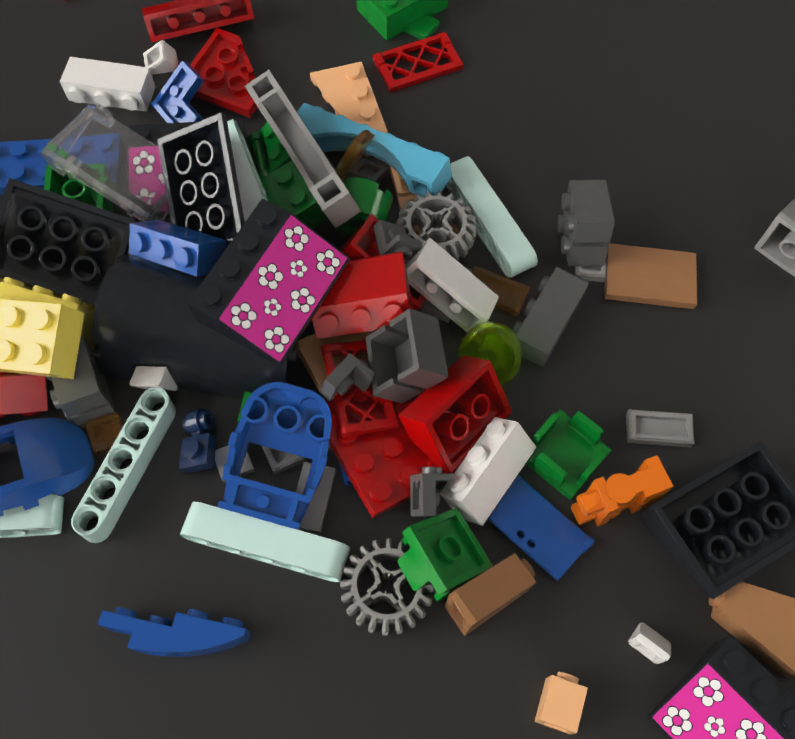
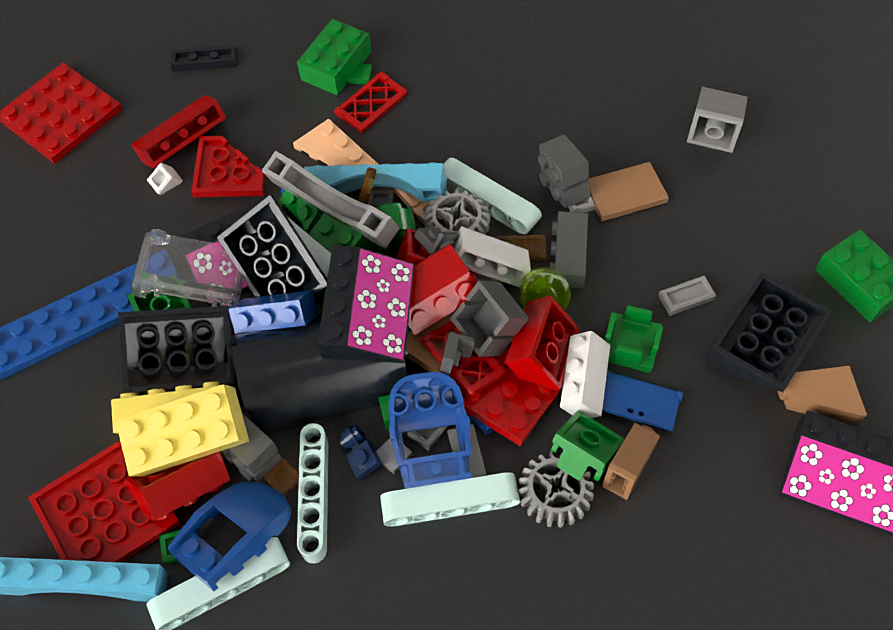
camera: 20 degrees left, 5 degrees down
(108, 84) = (134, 214): white brick -> none
(153, 377) = (302, 417): white slope -> none
(176, 94) = (196, 202): plate -> none
(189, 635) = (432, 591): blue slope -> none
(423, 491) = (550, 409): dark grey bracket -> none
(561, 703) = (718, 511): light nougat brick -> none
(609, 498) = (686, 348): orange hips -> none
(650, 644) = (756, 445): white slope -> none

